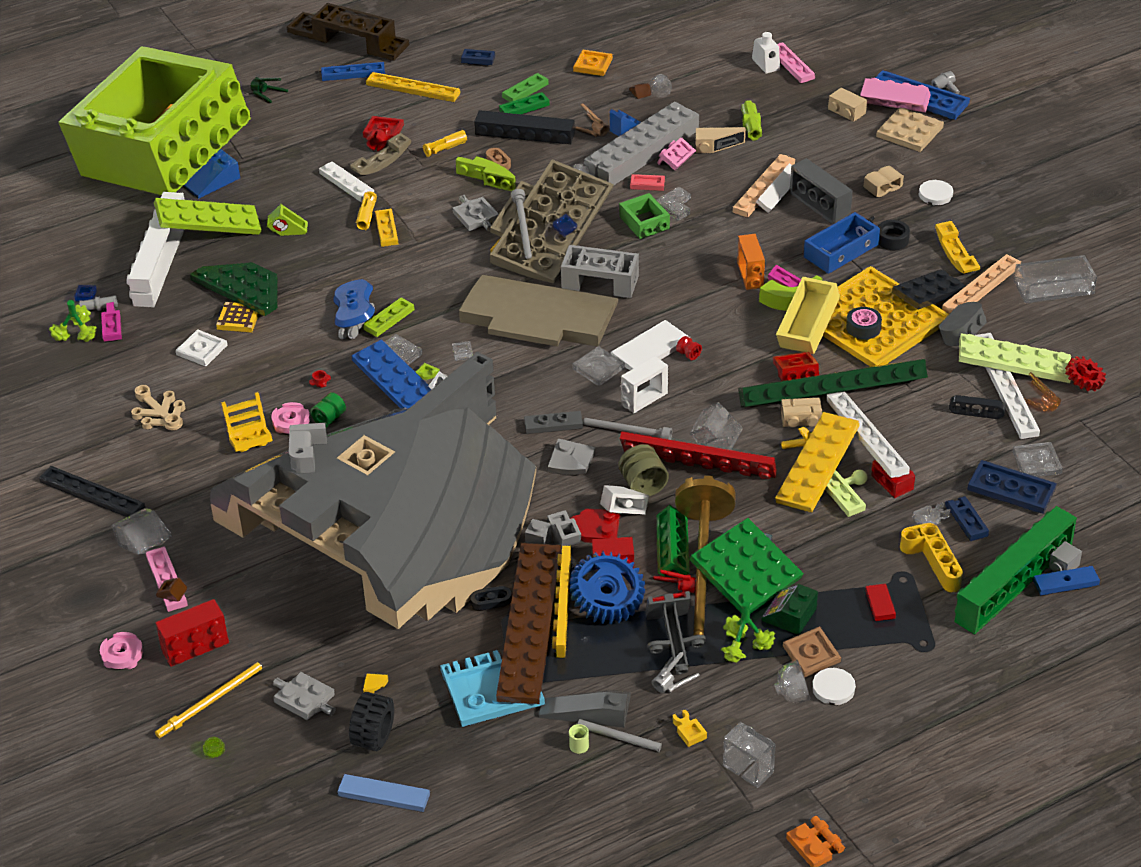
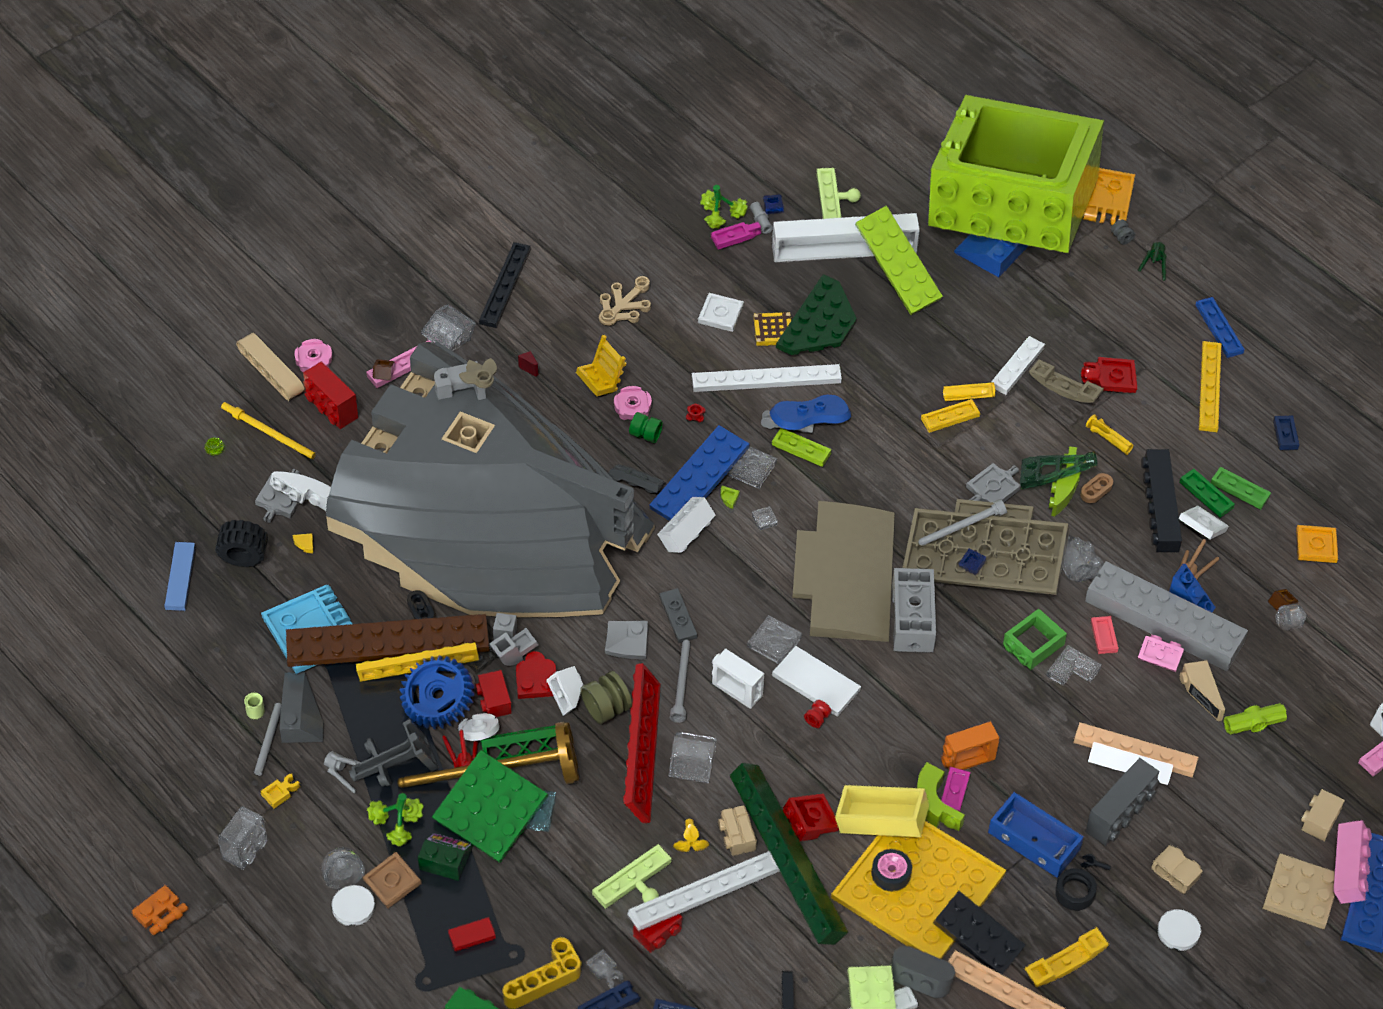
camera: 75 degrees right, 10 degrees up
(96, 256) = (829, 194): none -> yellowish green plate
(120, 687) = (270, 366): none -> tan beam
(210, 480) = (528, 363): none -> dark red slope
(286, 222) = (926, 331): lime slope -> none
(295, 331) = (766, 378): none -> white plate
(311, 420) = (479, 374): none -> dark tan plate
(315, 662) = (301, 488): none -> white slope
(333, 18) = (1282, 307): dark brown bracket -> none
(475, 188) = (1032, 468): none -> clear green plate
(557, 108) = (1203, 522): none -> white tile
(651, 564) = (479, 727): none -> white tile
(817, 462) = (656, 851): yellow plate -> none

